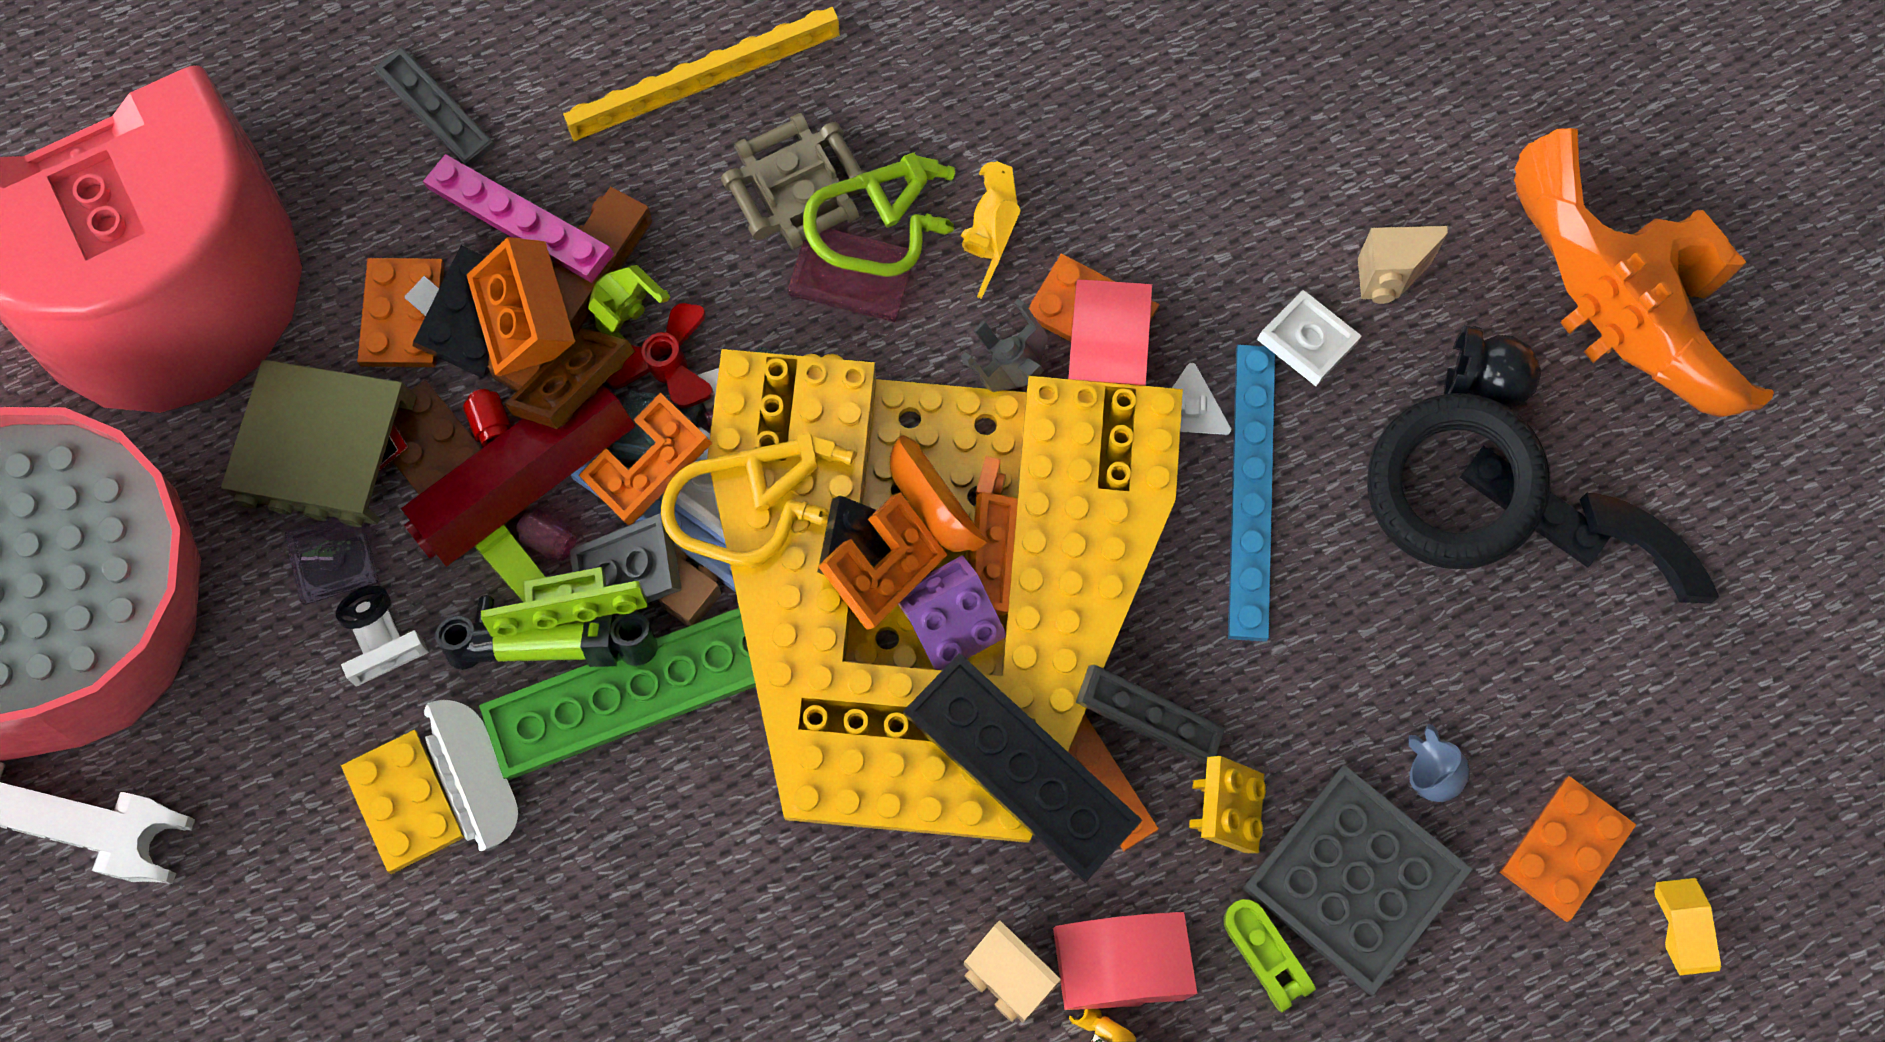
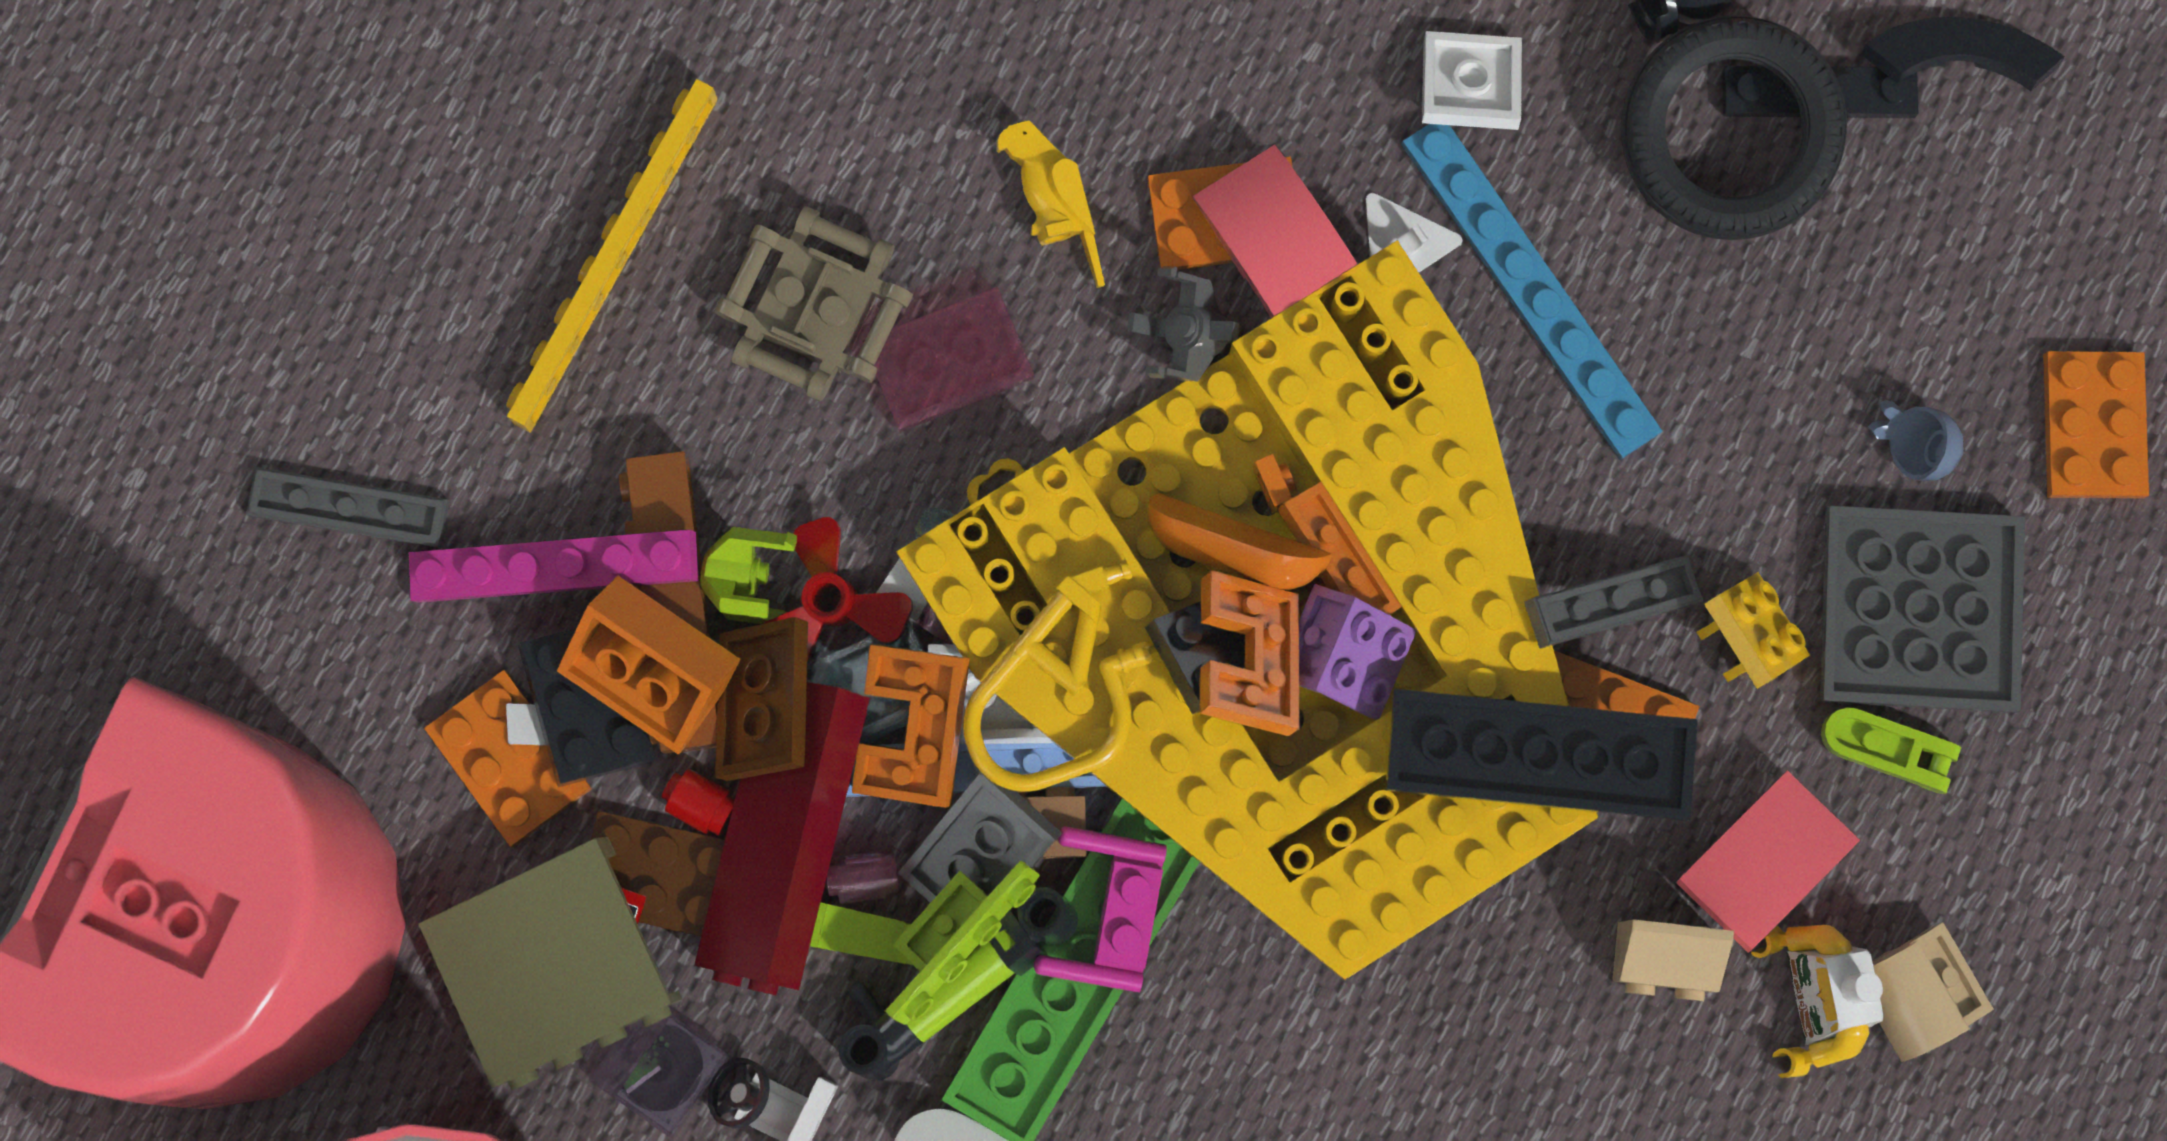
camera: 40 degrees left, 10 degrees up
(684, 675) = (1125, 915): none -> dark pink plate
(916, 172) = (928, 199): lime piece -> none

